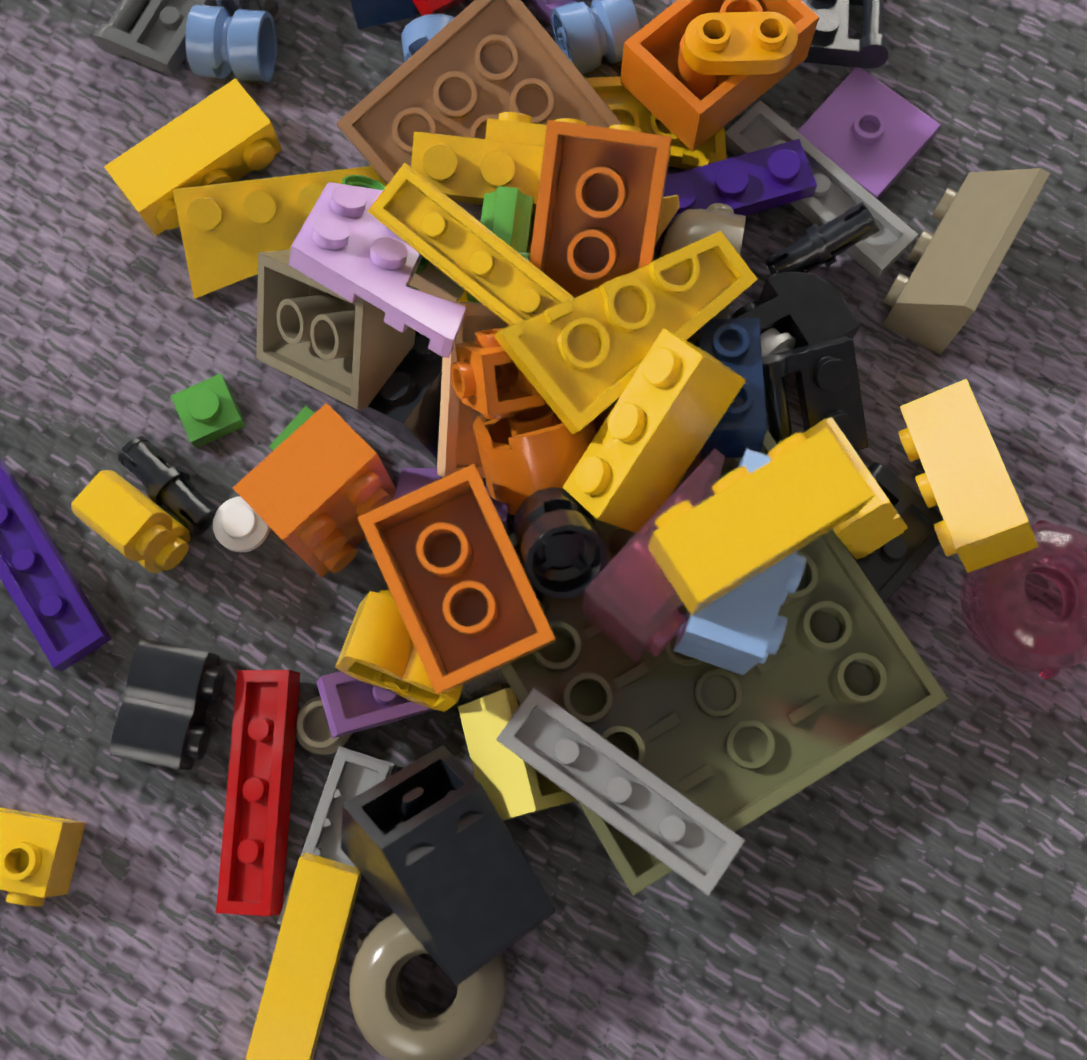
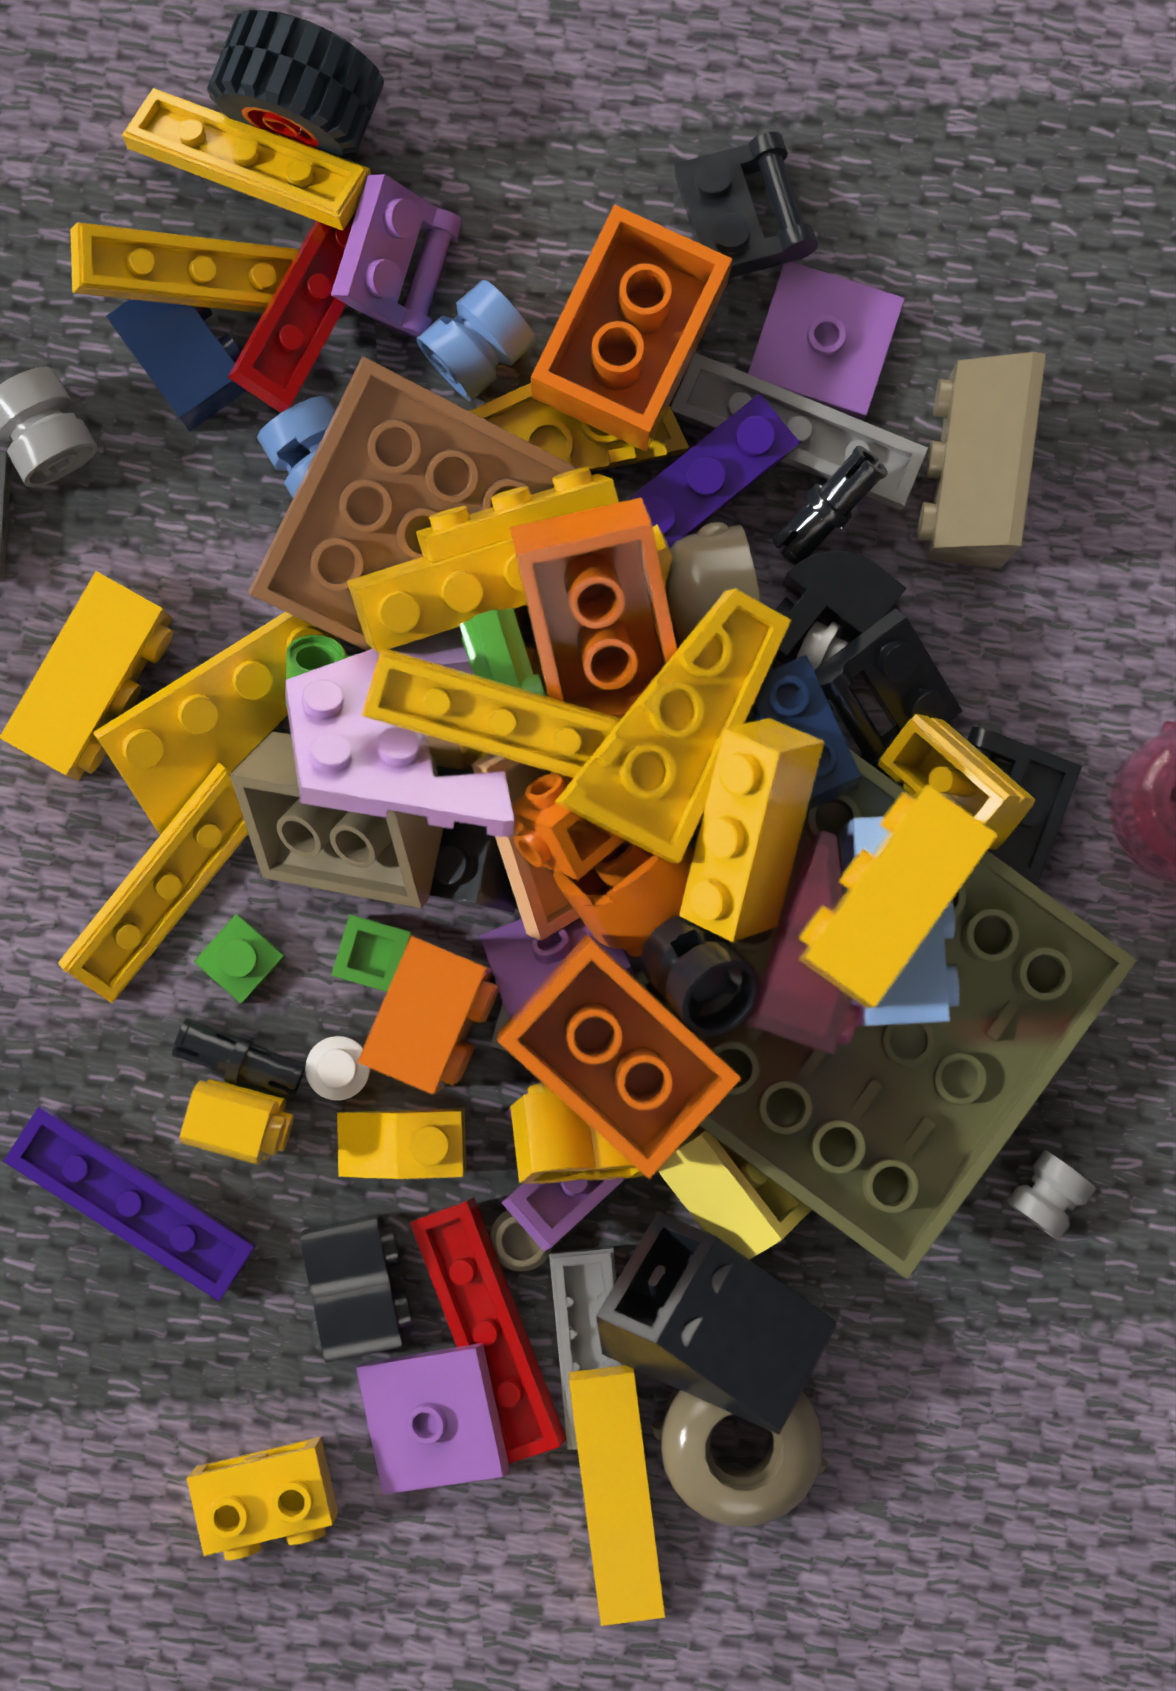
camera: 30 degrees left, 10 degrees up
(167, 333) = (159, 889): none -> yellow tile
(177, 846) = (433, 1419): none -> medium lavender plate
(226, 44) = (54, 524): medium blue wheel -> none
(267, 604) = (402, 1143): none -> yellow slope
(621, 791) = (855, 1188): light grey plate -> none
(742, 43) = (663, 334): light orange plate -> none
(794, 879) = (1053, 1191): none -> light grey wheel
(965, 478) = (1073, 716): yellow brick -> none

